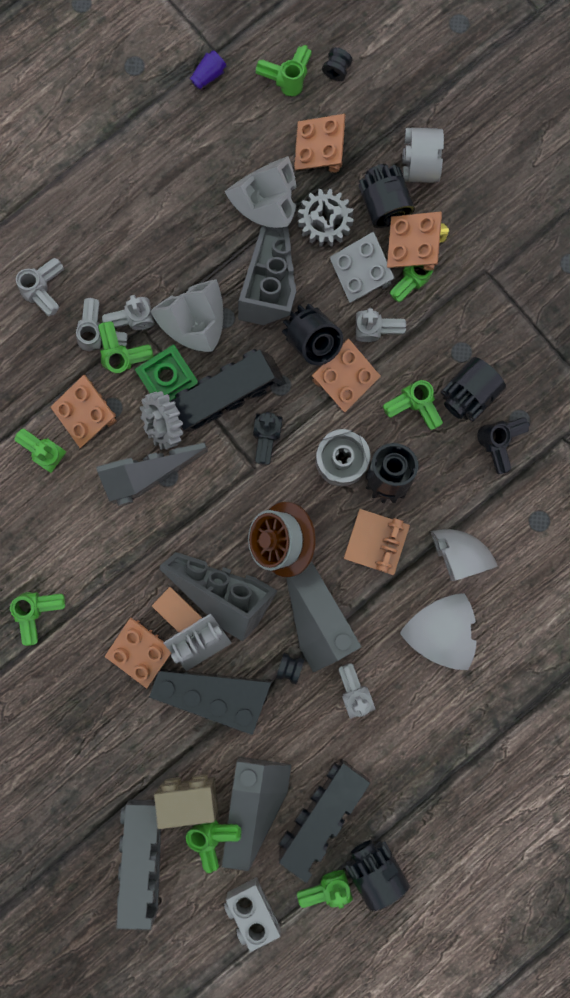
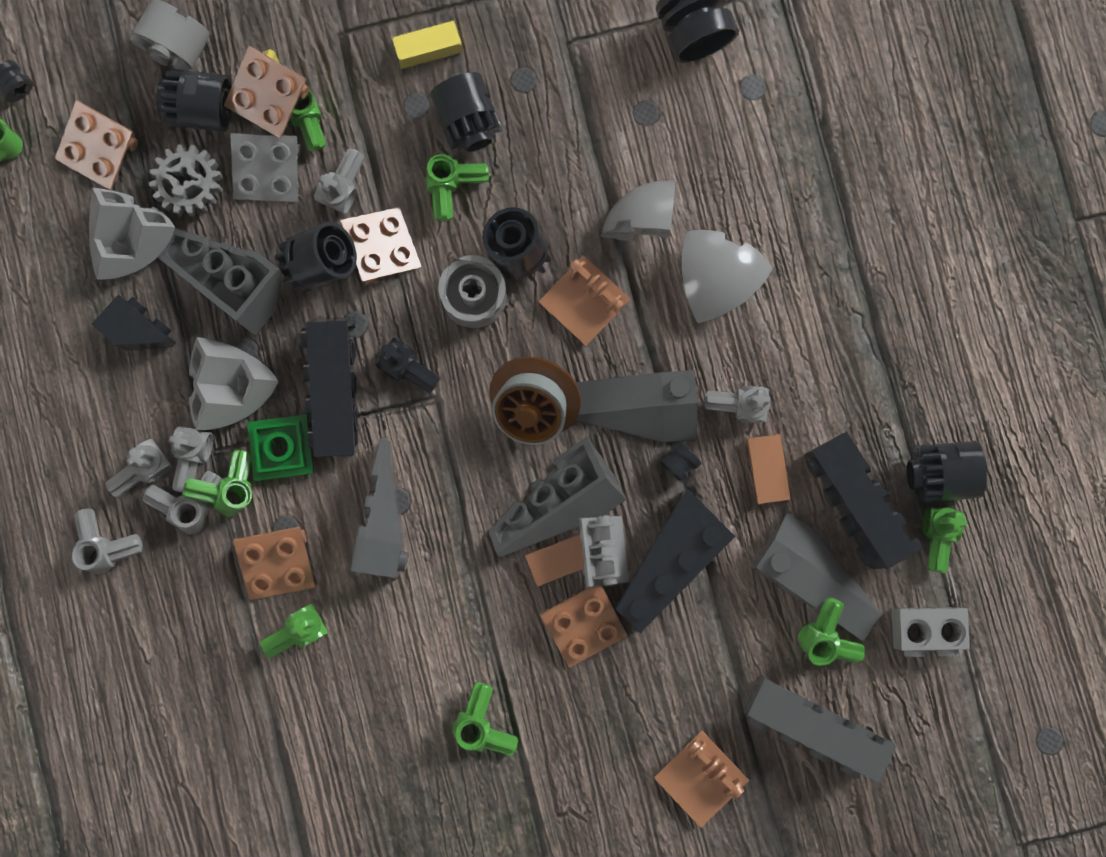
camera: 70 degrees left, 0 degrees up
(67, 791) = (701, 779): none -> nougat hinge
(110, 287) = (145, 464): none -> light grey axle
(161, 420) = (330, 474): light grey gear -> none
(186, 802) = (775, 644): dark tan brick -> none
(202, 229) = (129, 328): none -> black slope
(316, 736) = (768, 469): none -> nougat tile
(504, 434) = (532, 103): black axle -> none
(510, 338) = (427, 44): none -> light yellow slope

